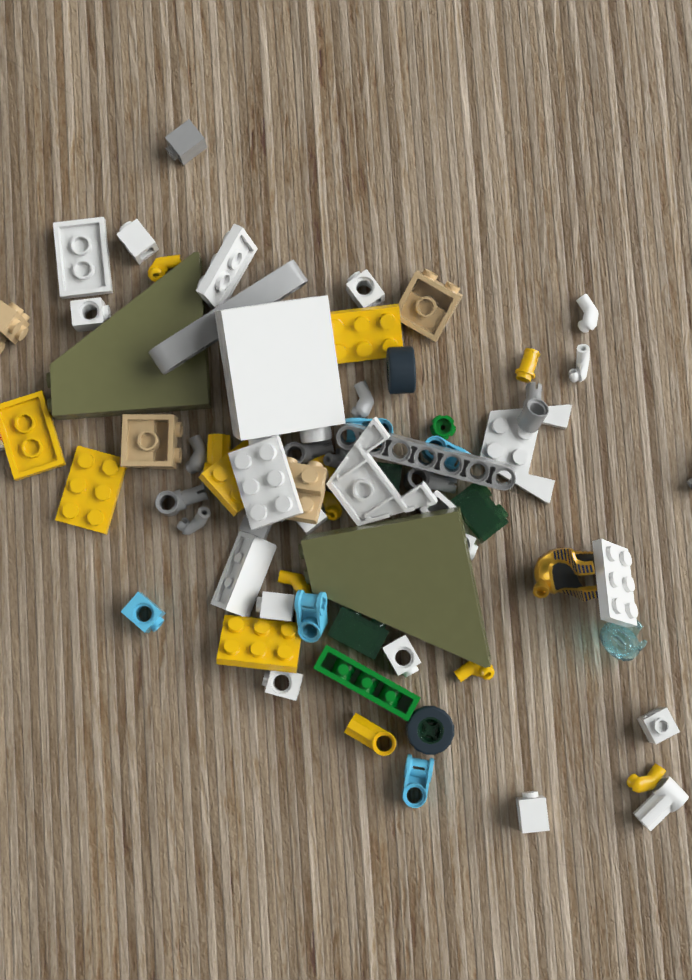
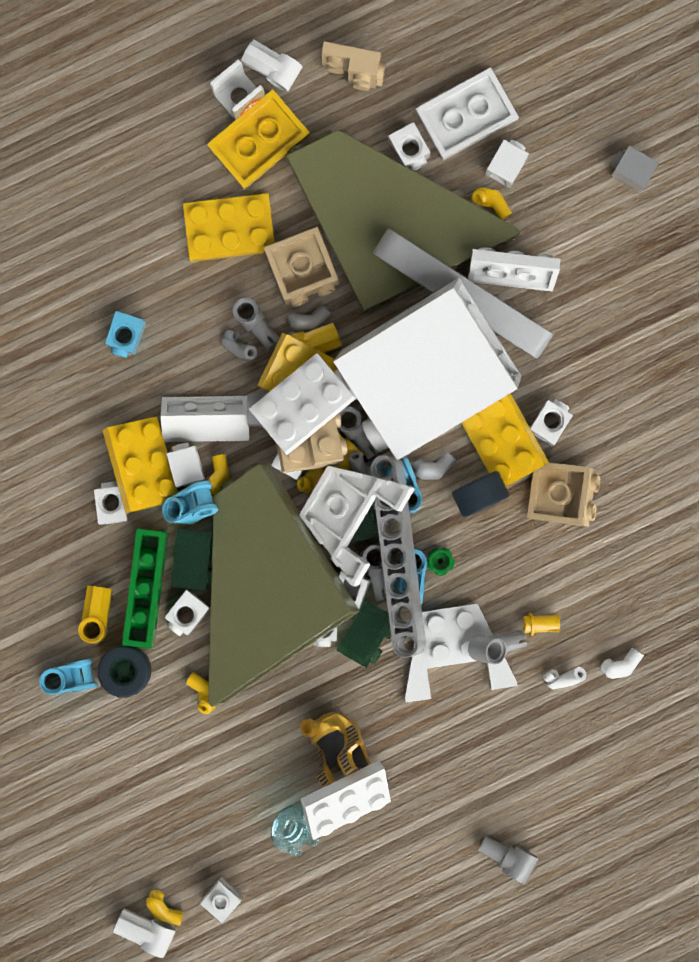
camera: 65 degrees right, 5 degrees up
(532, 812) = (83, 806): white brick -> none

